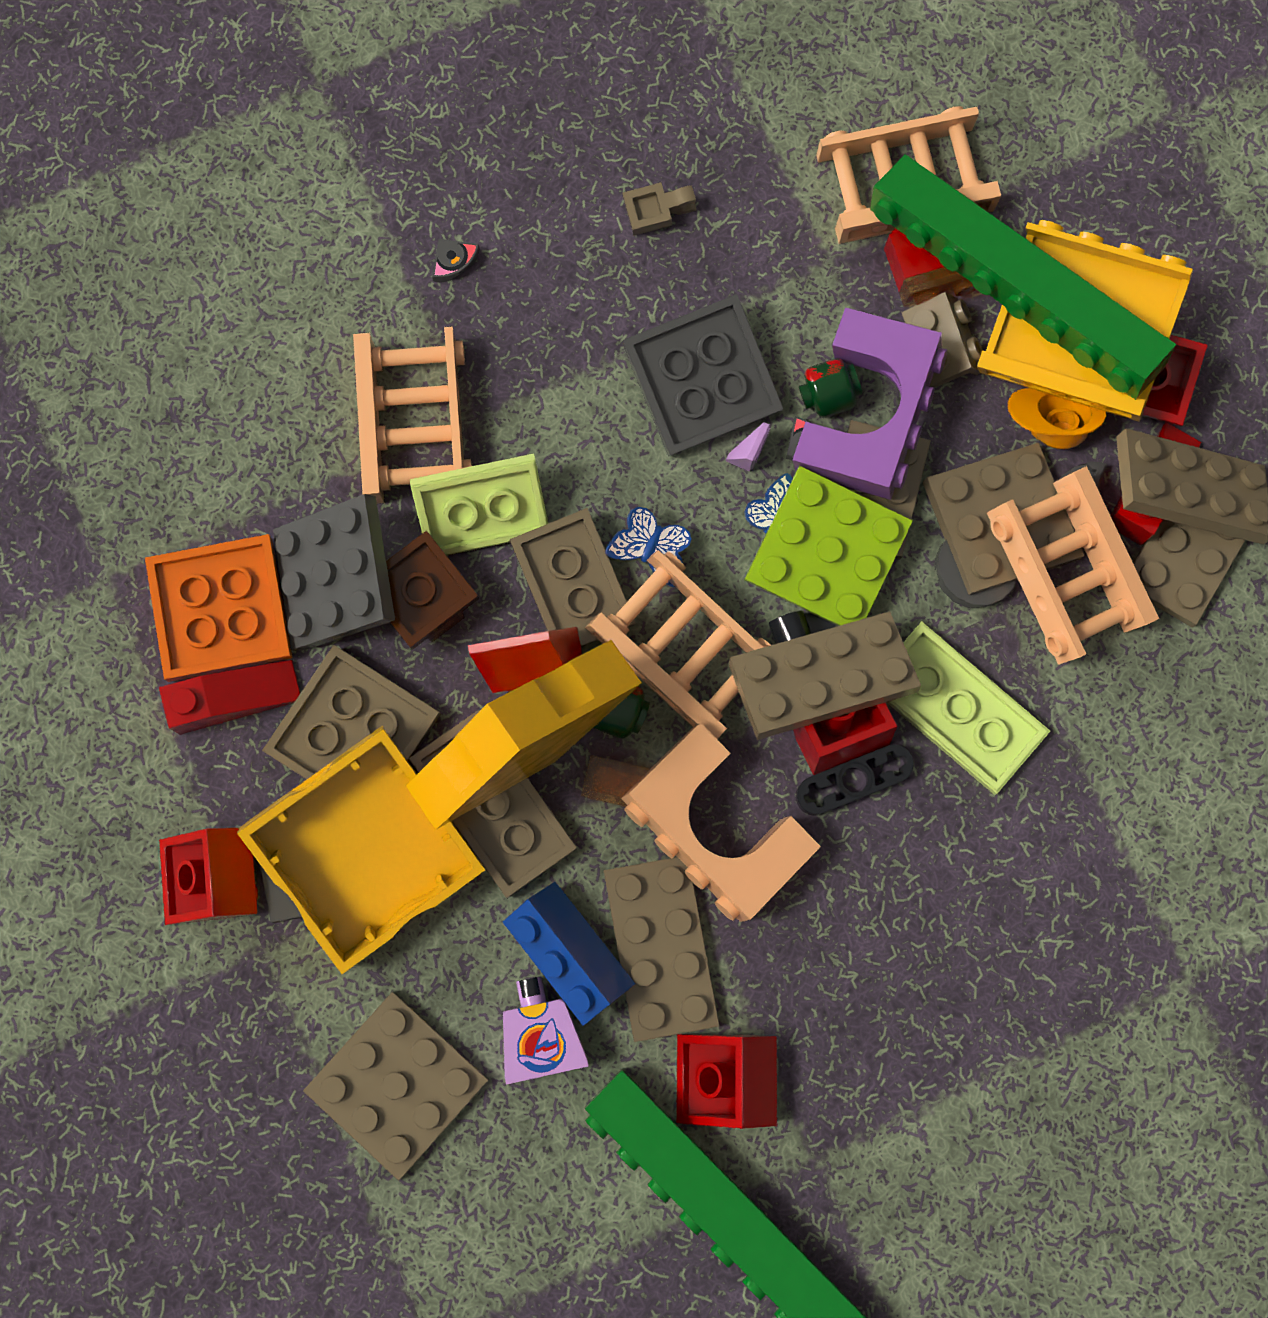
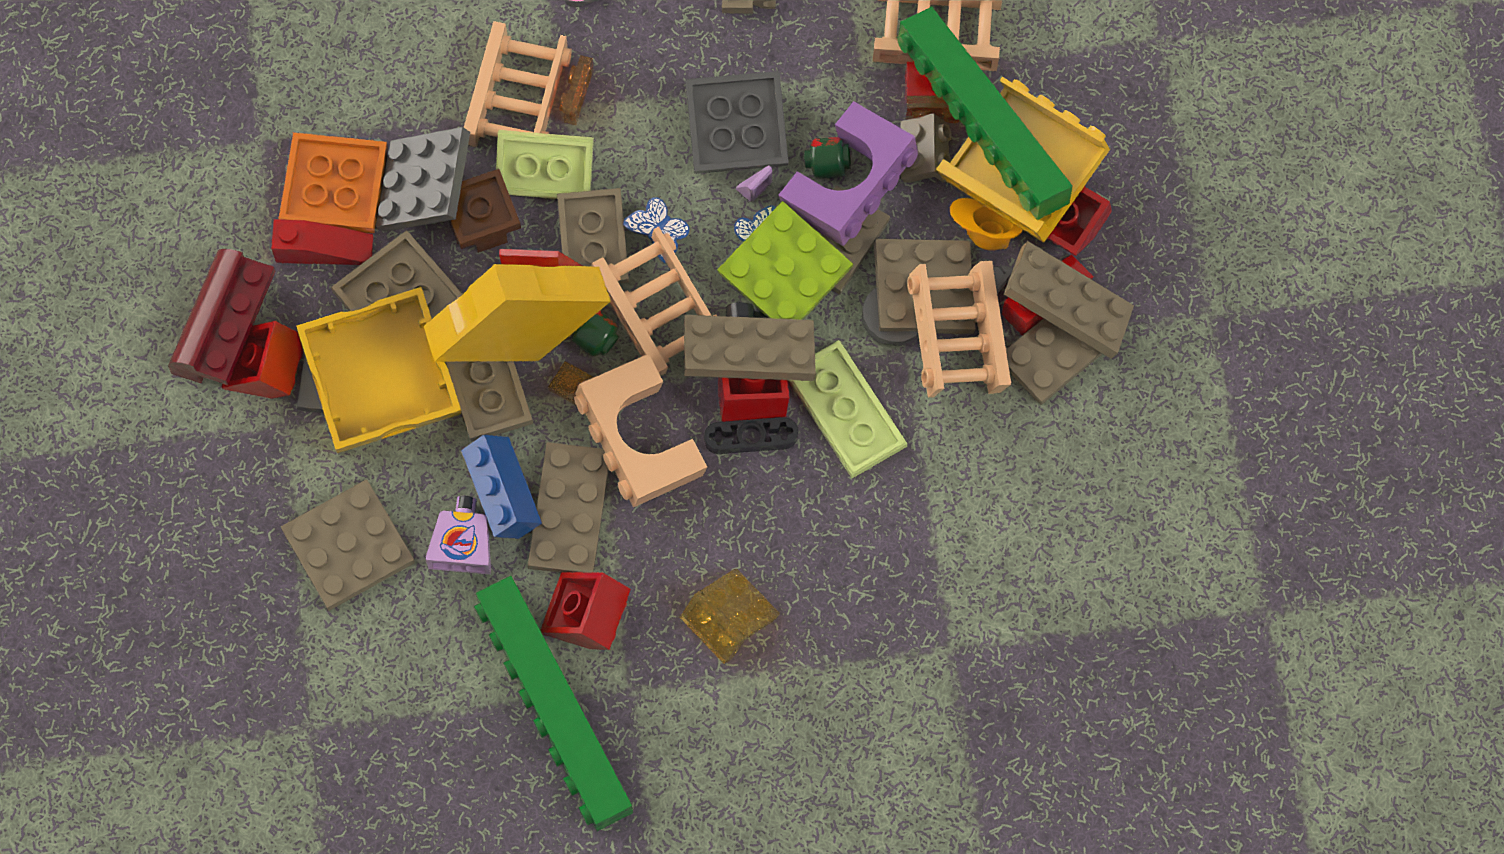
camera: 20 degrees right, 10 degrees down
(135, 837) = (221, 318): none -> dark red brick
(485, 375) = (579, 78): none -> clear orange plate
(908, 1026) = (728, 614): none -> clear yellow bracket

